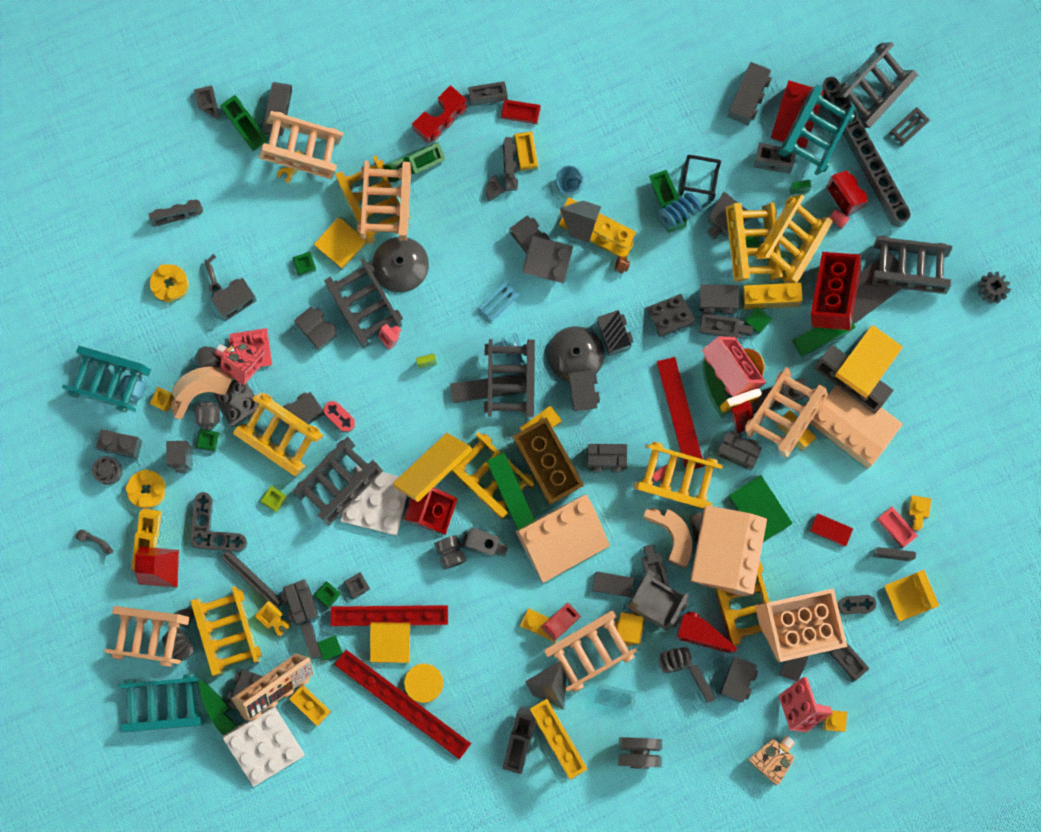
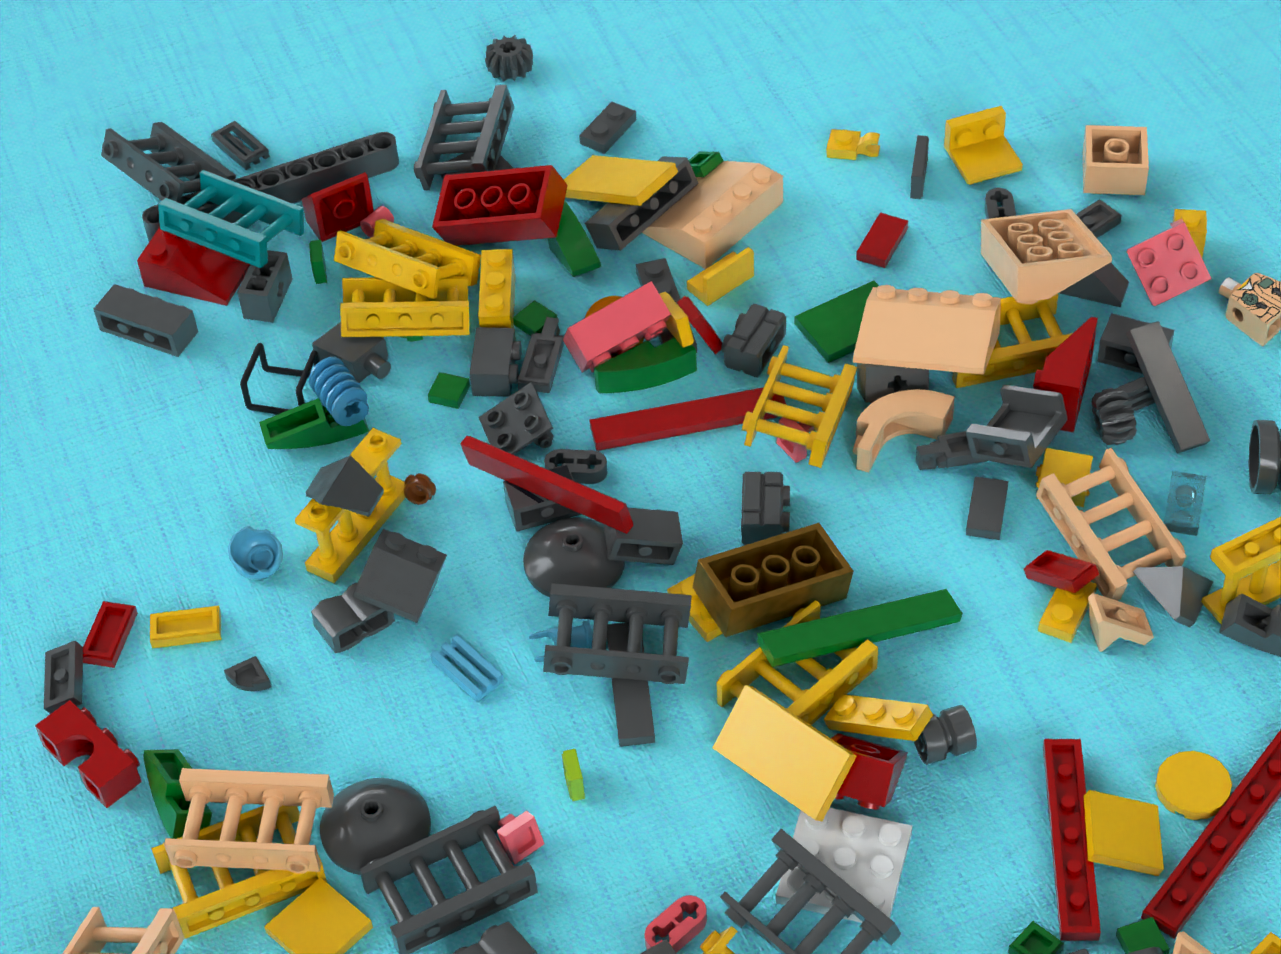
camera: 85 degrees left, 30 degrees down
(356, 585) = (1014, 897): dark grey tile -> none
(457, 517) = (878, 717): none -> yellow plate
(475, 539) = (928, 669): dark grey torso -> none
(510, 166) = (206, 646): dark grey hinge -> none
(525, 651) = (1116, 619): none -> light nougat slope
(563, 538) = (906, 565): light nougat slope -> none
(605, 332) = (547, 484): none -> red tile
(636, 351) = (579, 464): none -> dark grey beam
(695, 693) = (1168, 387): none -> dark grey tile
(699, 274) = (448, 390): none -> green tile
(796, 427) = (698, 237): light nougat fence -> none
(895, 416) = (705, 162): none -> green tile
(897, 527) = (875, 169): coral tile -> none
(899, 679) = (1115, 160): none -> light nougat brick
(932, 355) = (608, 127): none -> dark grey plate

